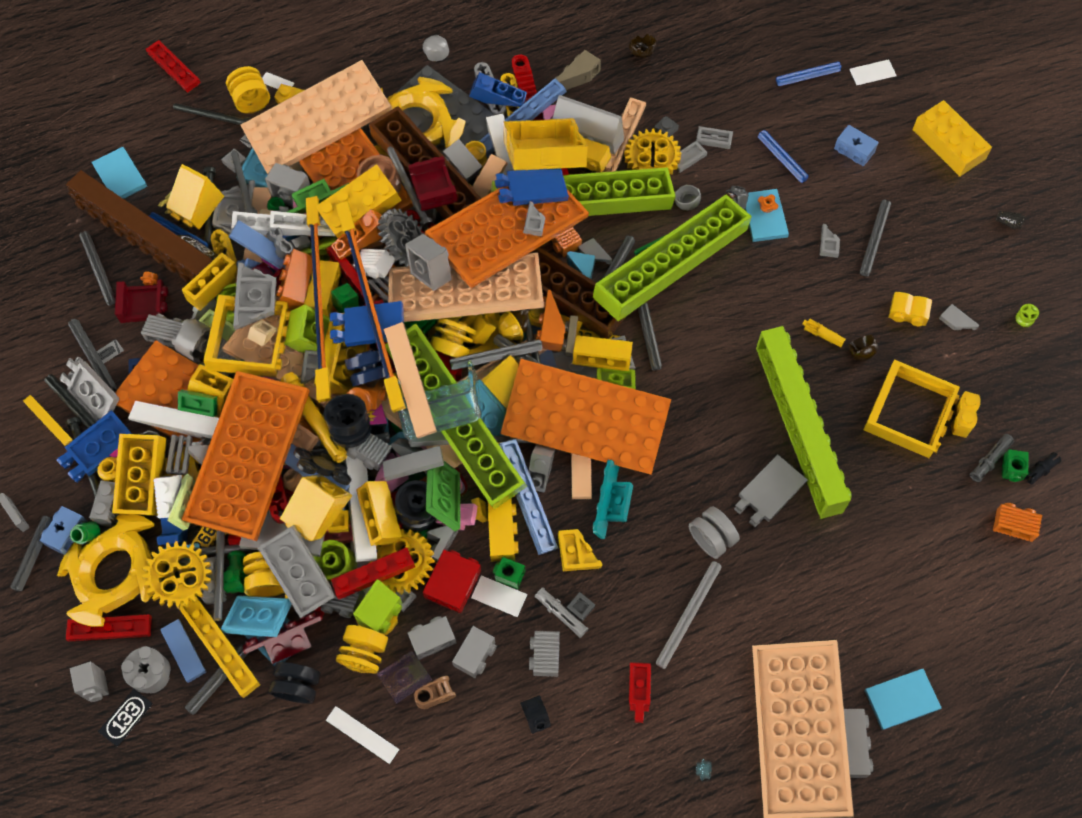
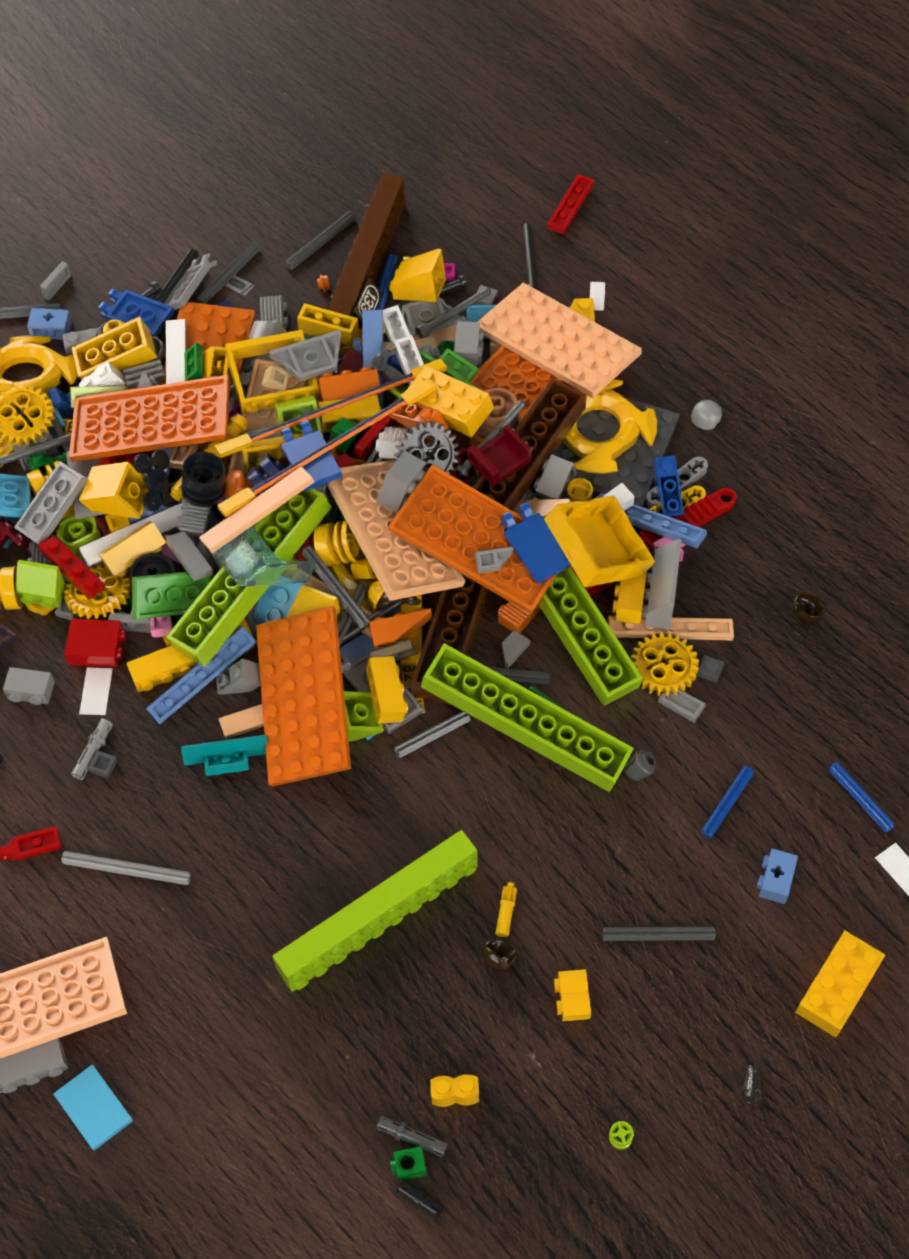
camera: 70 degrees right, 5 degrees down
(51, 424) = (150, 268): yellow beam -> none
(85, 532) = (50, 338): green brick -> none
(119, 173) = (429, 214): medium azure tile -> none
(137, 302) = (296, 285): dark red panel -> none
(247, 89) = (565, 271): yellow wheel -> none
(431, 637) = (33, 645): light grey brick -> none
(513, 580) = (121, 696): green brick -> none
(545, 653) = (44, 748): light grey brick -> none
(575, 552) = (160, 741): yellow wing -> none
(580, 71) = (741, 557): dark tan slope -> none
(581, 262) = (488, 642): medium azure slope -> none
(687, 197) = (621, 715): light grey hair -> none
(713, 139) = (723, 738): light grey tile -> none
(714, 532) = (214, 858): light grey wheel -> none
(762, 224) = (637, 805): medium azure tile -> none
(768, 207) = (646, 805): orange plate -> none
(770, 490) = (289, 906): light grey tile -> none
(829, 243) = (630, 885): light grey tile -> none
(922, 379) = (444, 993): yellow window -> none
(957, 319) = (584, 1054): light grey tile -> none
(1017, 522) = (337, 1182): orange brick -> none

